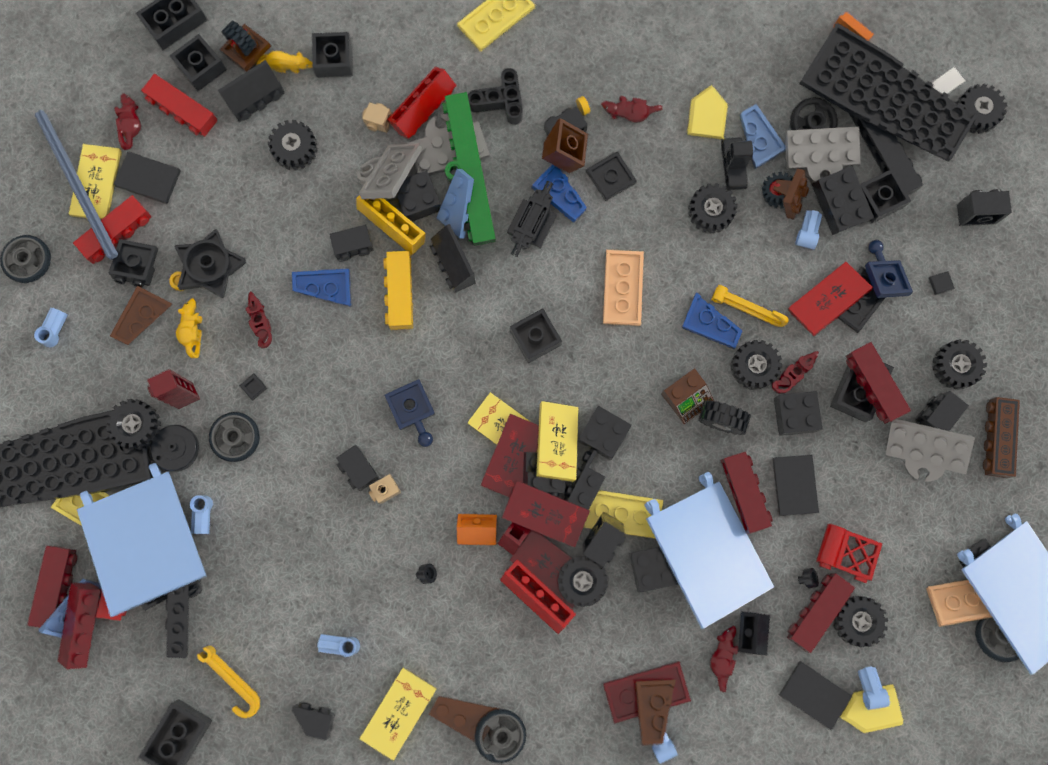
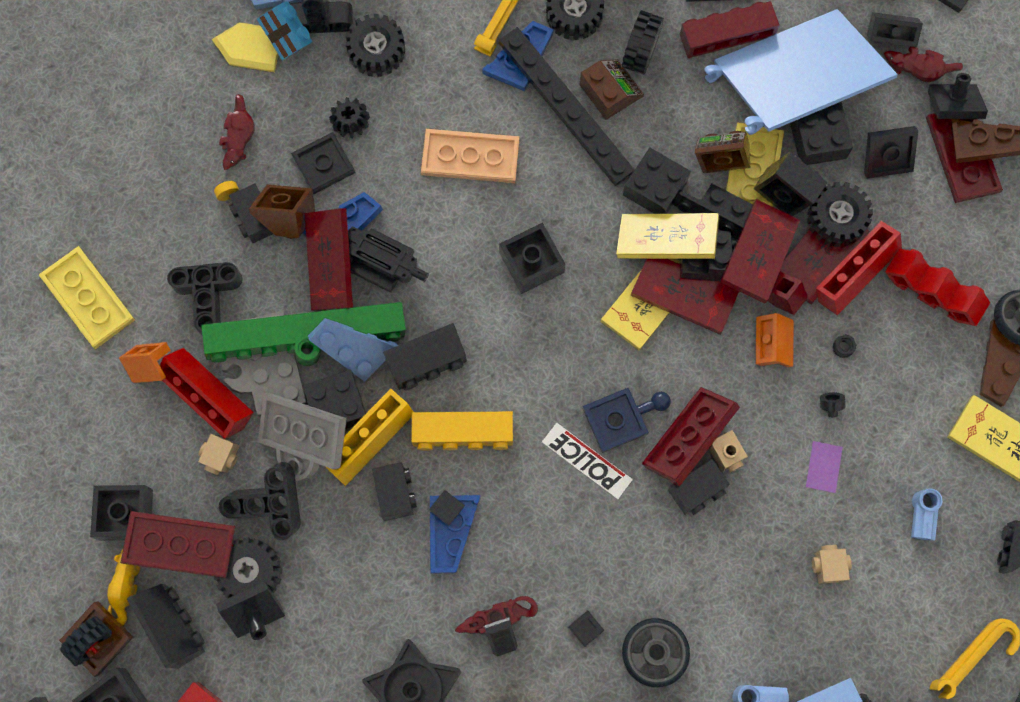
camera: 85 degrees left, 5 degrees down
(243, 323) = (501, 637): none -> black tile
(261, 147) = (251, 611): none -> black tile
(299, 570) = (831, 565): none -> tan brick
(306, 93) = (178, 544): none -> dark red tile
(338, 280) = (446, 508): none -> black tile
(342, 155) = (270, 502): none -> black beam
(377, 568) = (824, 467): none -> medium lavender sticker
(379, 385) = (587, 460): none -> sticker
(396, 460) = (690, 435): none -> dark red tile
(445, 56) = (142, 362): none -> orange panel
(474, 579) = (847, 339): none -> black axle
(525, 182) = (328, 259): none -> dark red tile
(525, 662) = (937, 287): none -> red brick
(633, 485) = (723, 152): none -> reddish brown slope
(640, 625) = (891, 152): none -> black tile
(653, 187) = (358, 117): none -> black gear
(668, 359) = (566, 106): none -> black plate
(691, 686) = (958, 99): none -> black tile
(717, 136) = (284, 30): none -> dark azure brick

